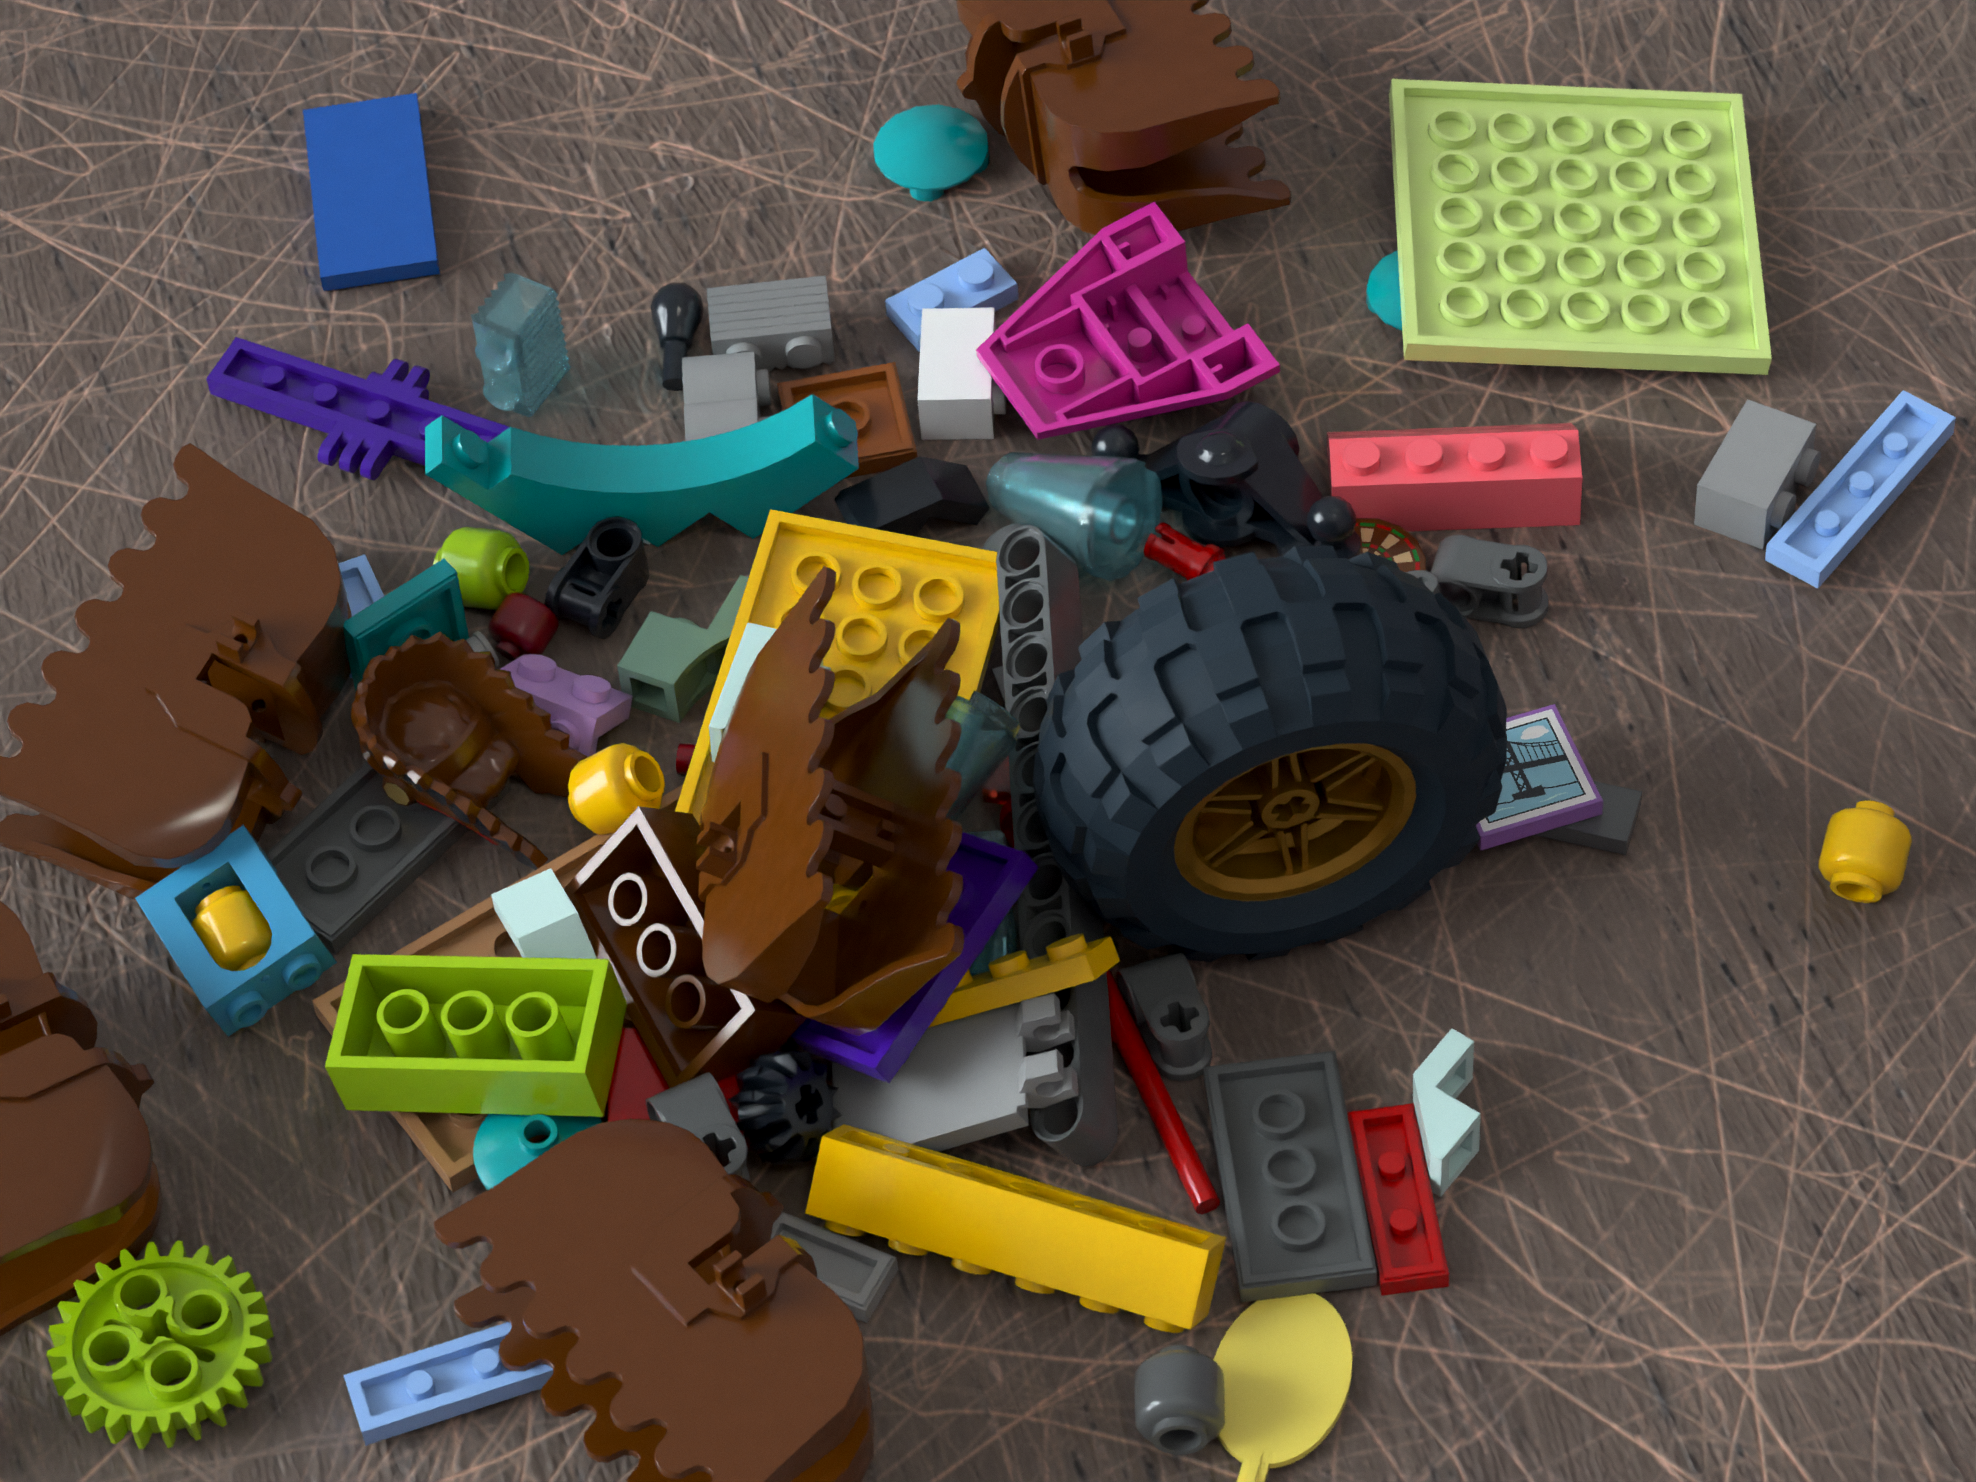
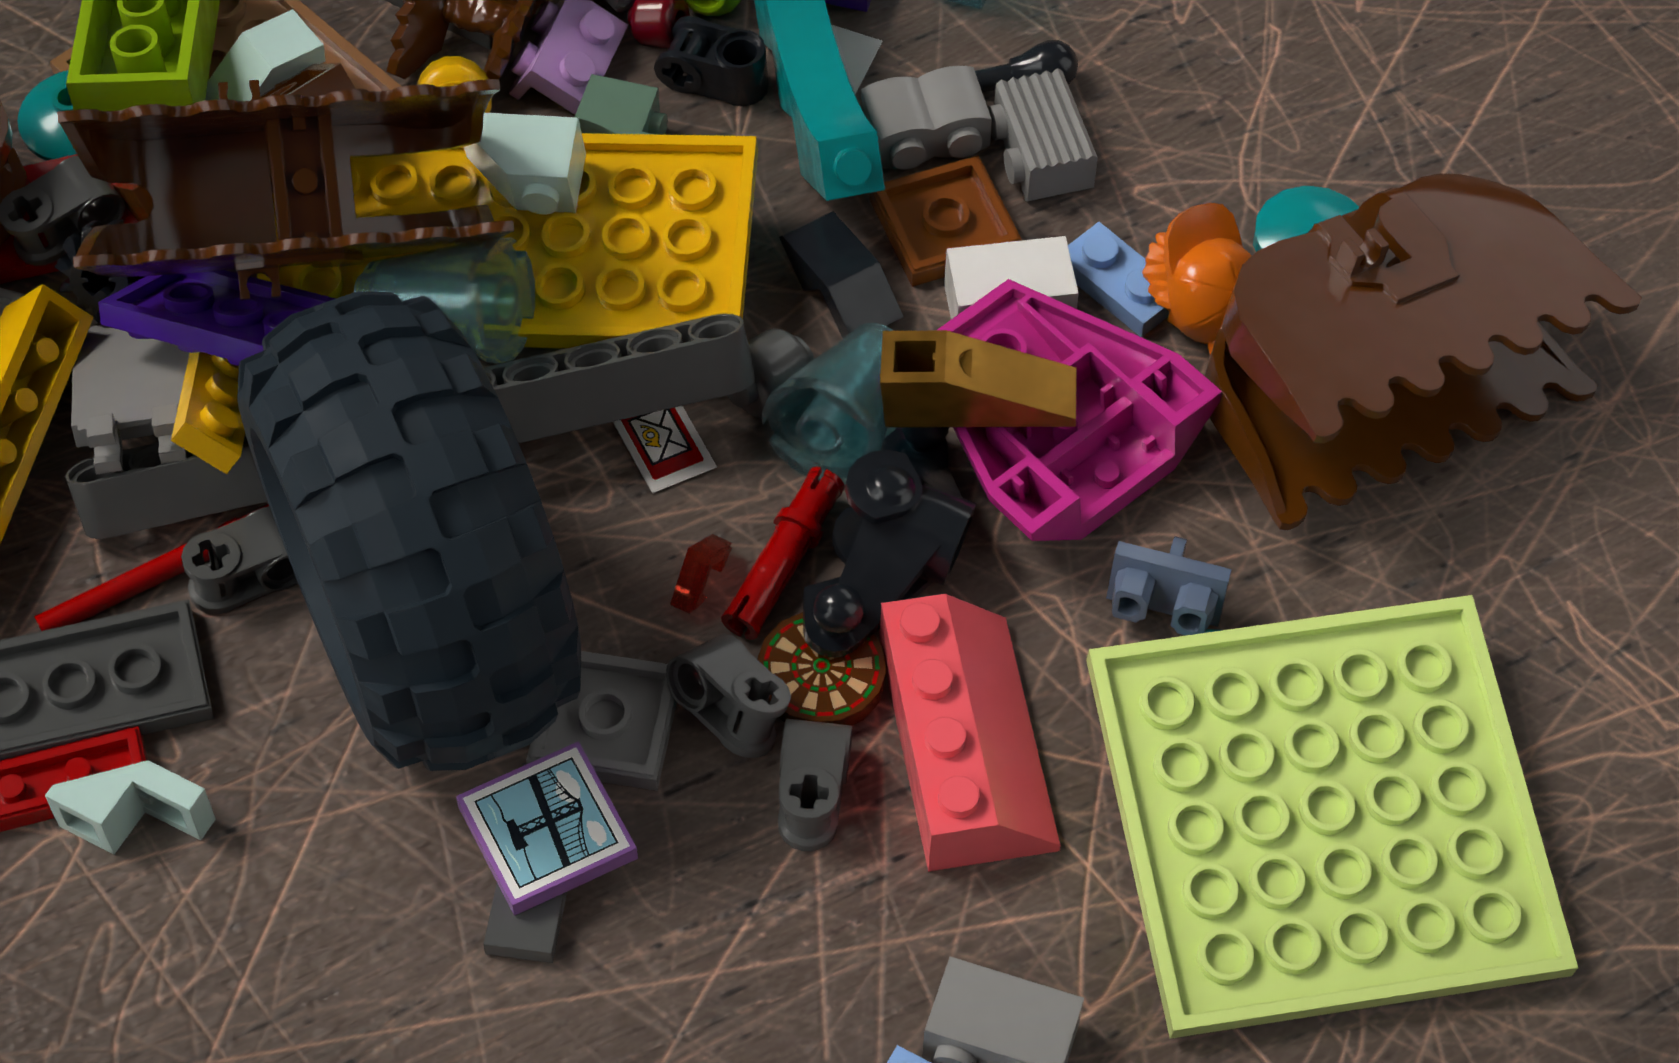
camera: 75 degrees right, 5 degrees up
(994, 216) = (1196, 269): none -> orange hair
(1120, 376) = (968, 382): none -> pearl gold slope
(1318, 301) = (1167, 584): none -> sand blue hips

